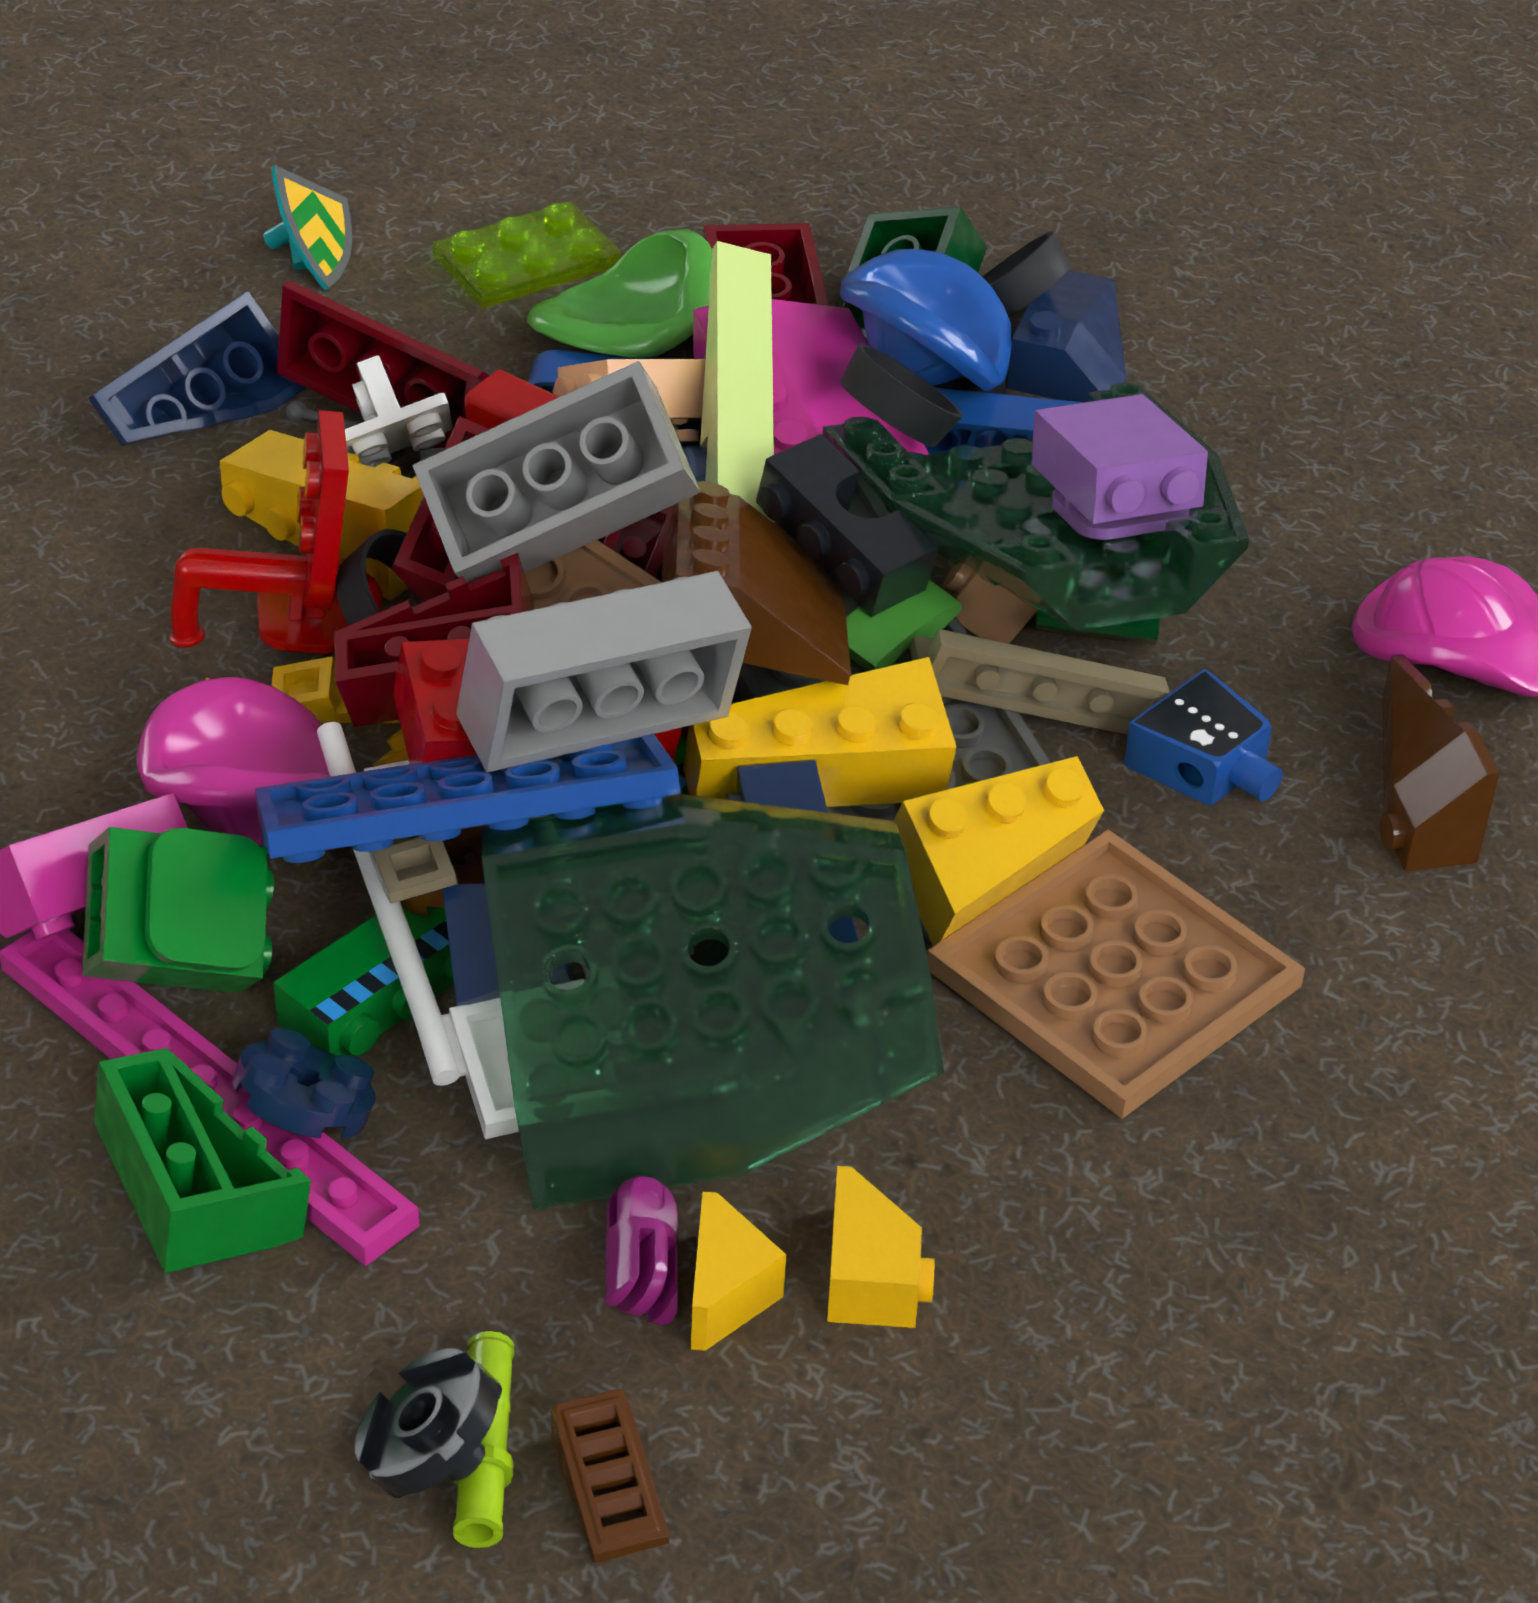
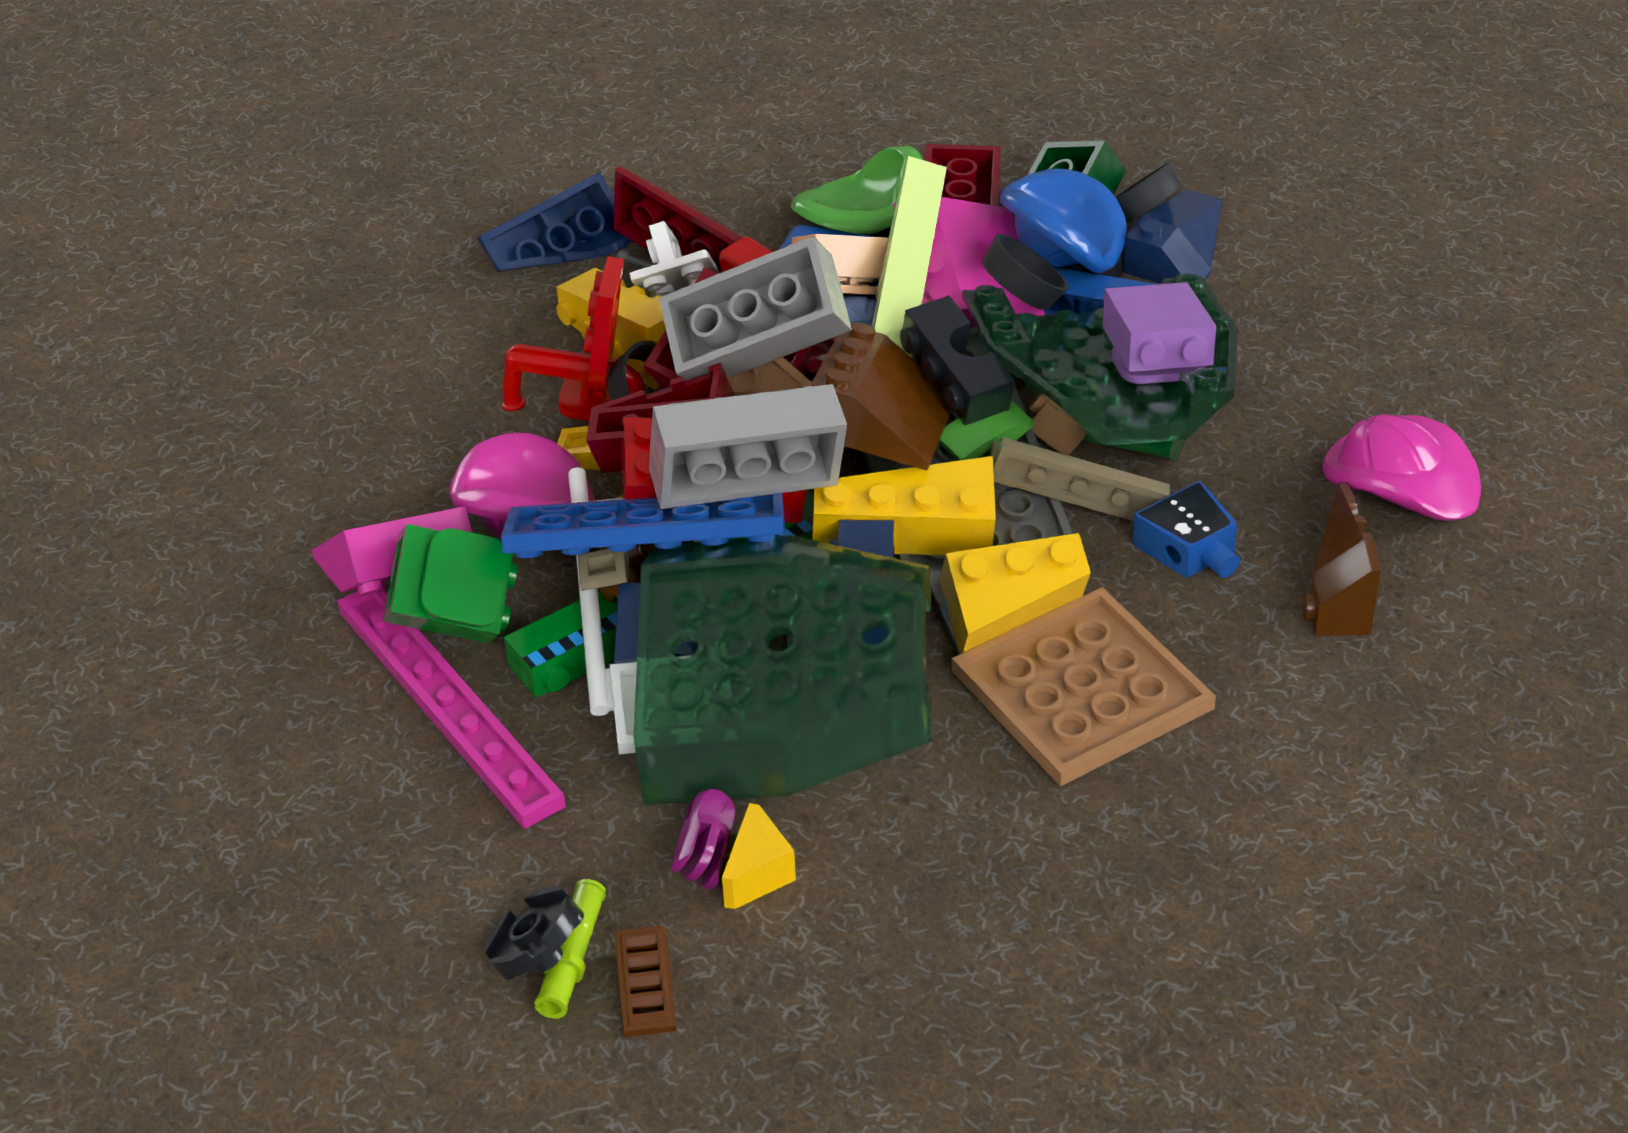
camera: 15 degrees right, 0 degrees up
(190, 1168) = (423, 752): green wedge -> none
(304, 1085) = (509, 707): dark blue plate -> none
(313, 224) = (663, 128): shield -> none
(526, 254) = (806, 156): clear neon green plate -> none
(875, 1258) = (857, 860): yellow slope -> none

